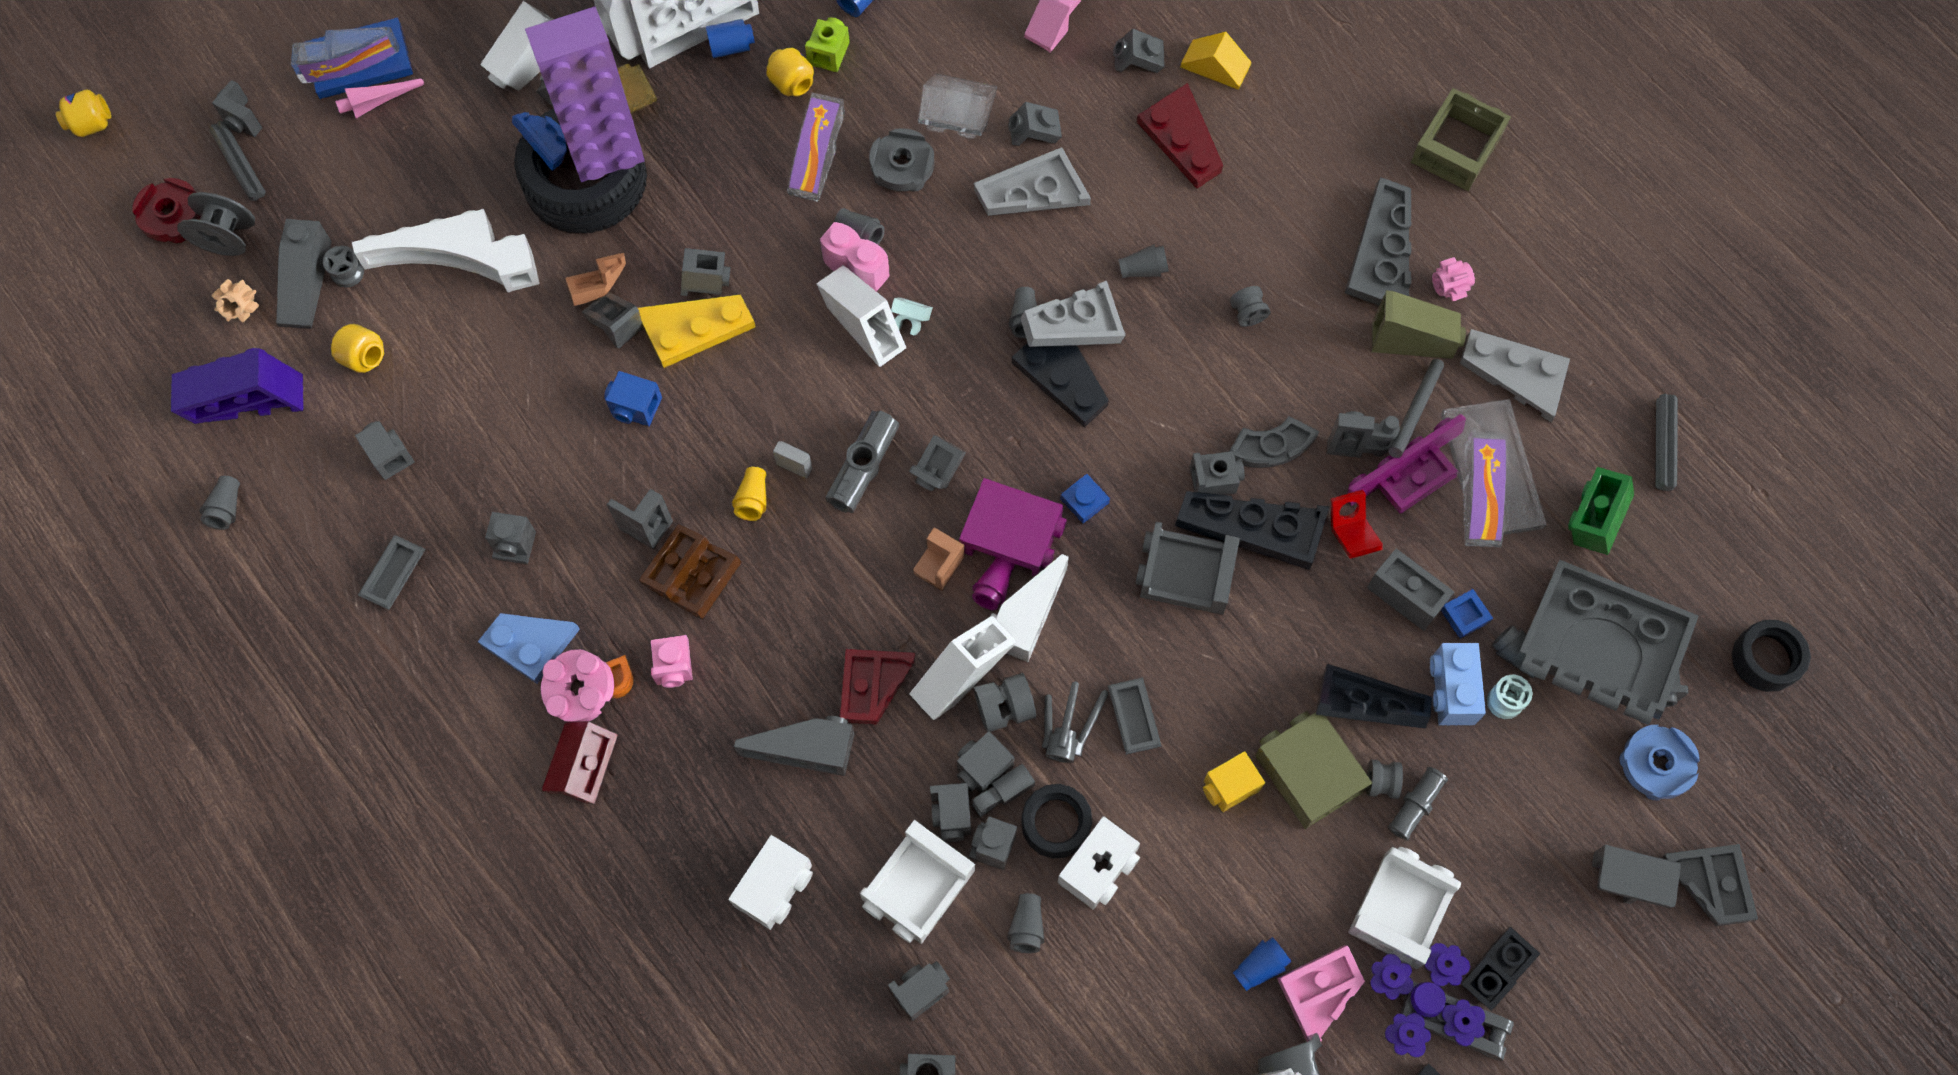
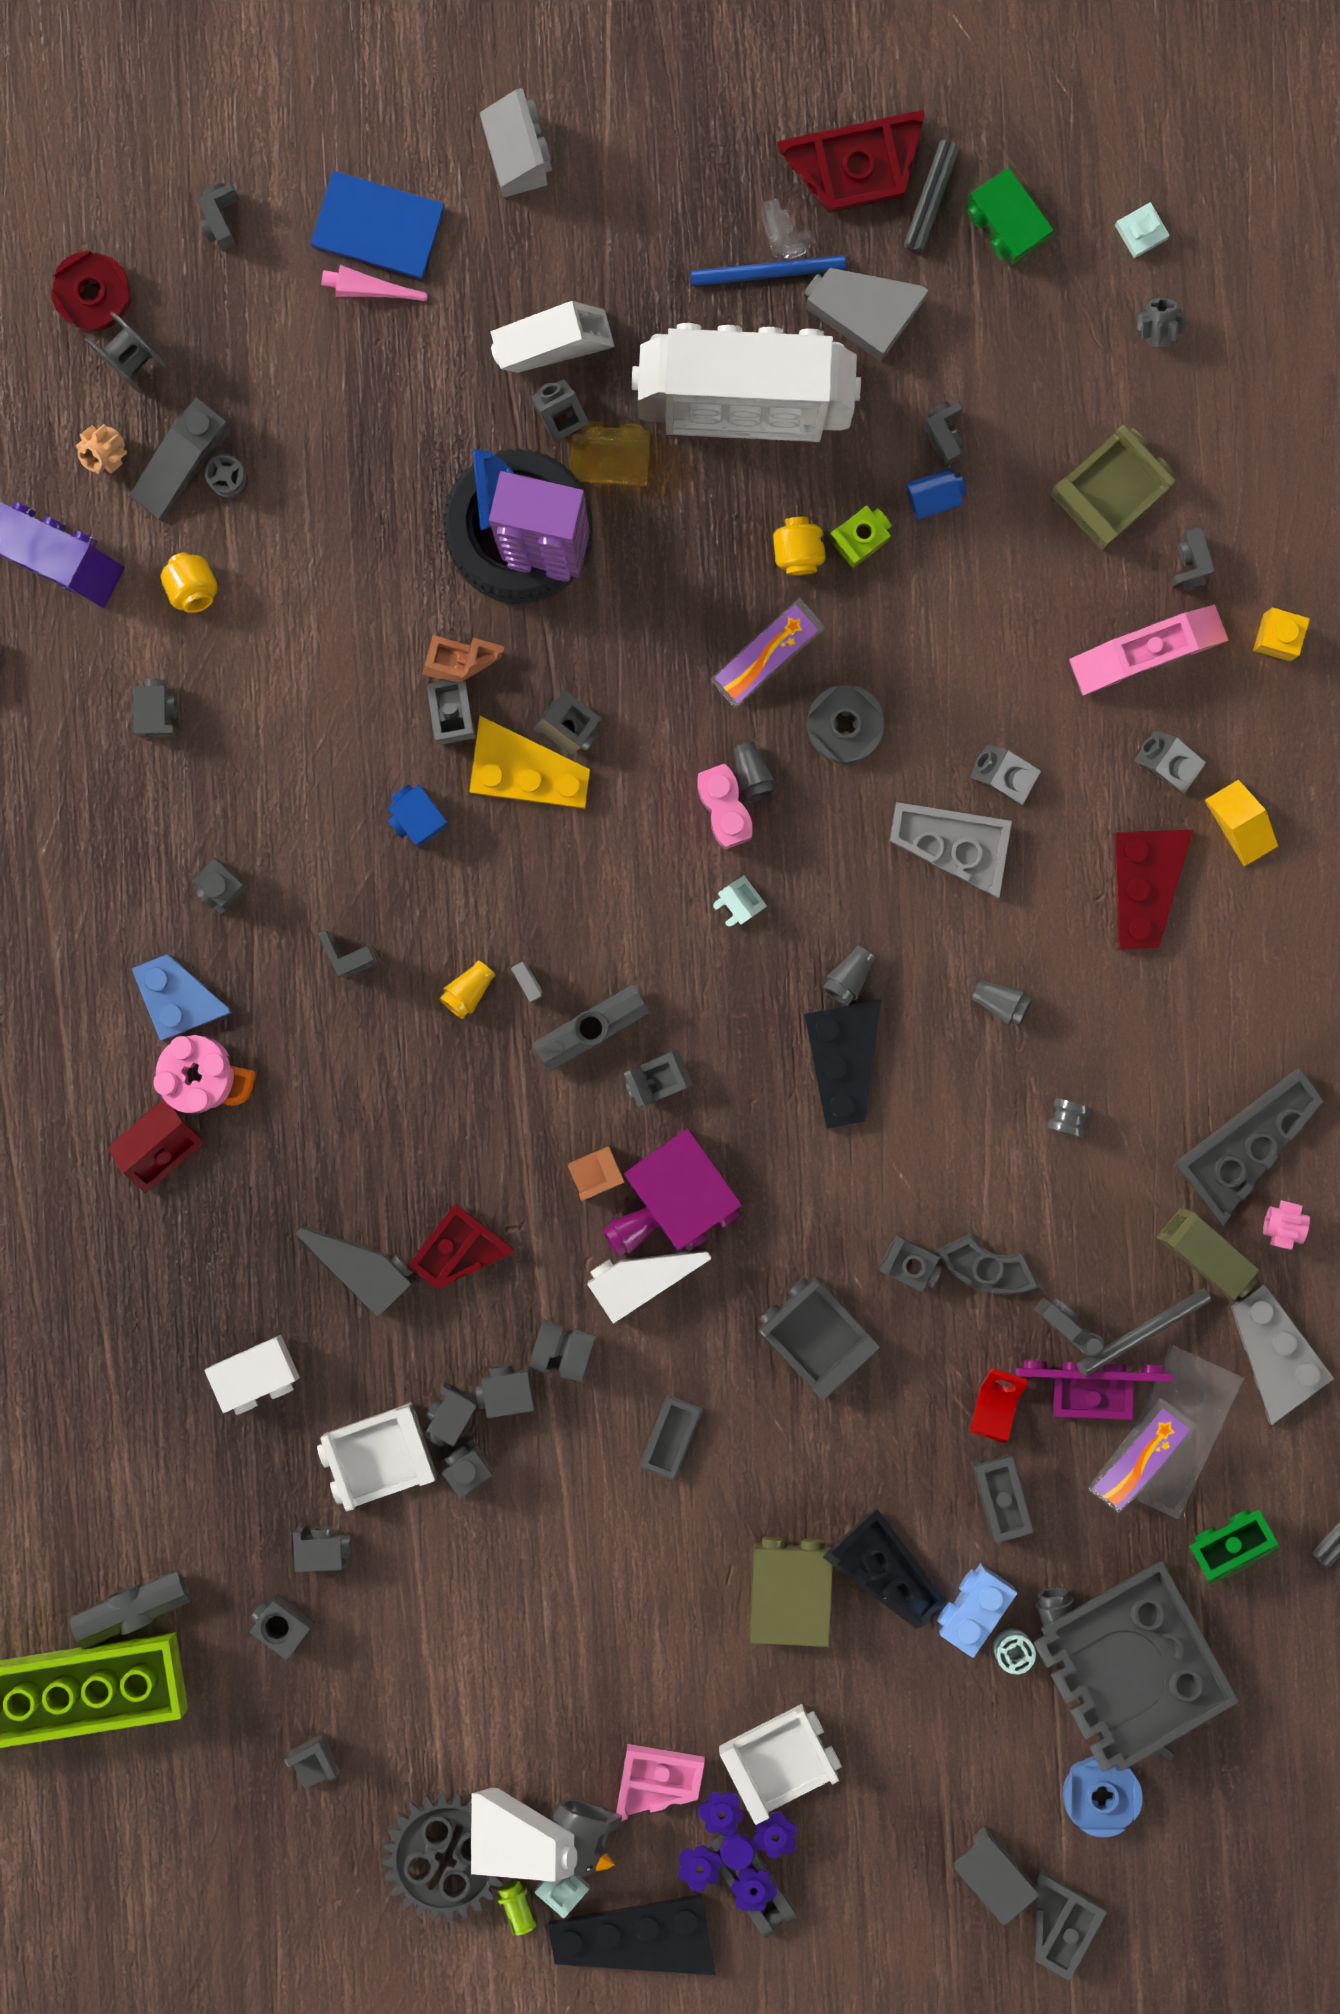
camera: 35 degrees right, 20 degrees up
(83, 113) = (64, 117): yellow head -> none
(237, 161) = (189, 274): dark grey axle -> none
(342, 53) = (358, 222): slope -> none
(391, 572) = (93, 843): dark grey tile -> none
(456, 242) = (355, 526): white arch -> none
(671, 661) = (293, 1105): bright pink bracket -> none
(690, 571) = (364, 1026): reddish brown slope -> none
(729, 38) = (765, 461): blue brick -> none
(862, 314) = (690, 872): white slope -> none
(956, 105) = (943, 697): clear slope -> none
(961, 667) = (544, 1299): white slope -> none
(1004, 790) = (509, 1427): dark grey bar -> none
(1026, 928) = (447, 1557): dark grey cone -> none
(1062, 744) = (590, 1420): dark grey plant -> none
(1066, 794) = (544, 1513): black tyre -> none
(1077, 320) = (890, 1021): light grey wing -> none
(1085, 498) = (773, 1202): blue plate -> none
(1103, 842) = (522, 1545): white brick -> none
(1232, 782) = (711, 1558): yellow brick -> none
(1262, 964) = (623, 1725): blue cone -> none
(1272, 530) = (919, 1347): black wing -> none
(1385, 779) = (847, 1645): dark grey wheel -> none
(1417, 803) = (860, 1685): dark grey pin -> none
(1466, 613) = (1038, 1552): blue plate -> none
(1500, 968) = (823, 1864): black slope -> none
(1787, 636) = (1296, 1801): black tyre -> none

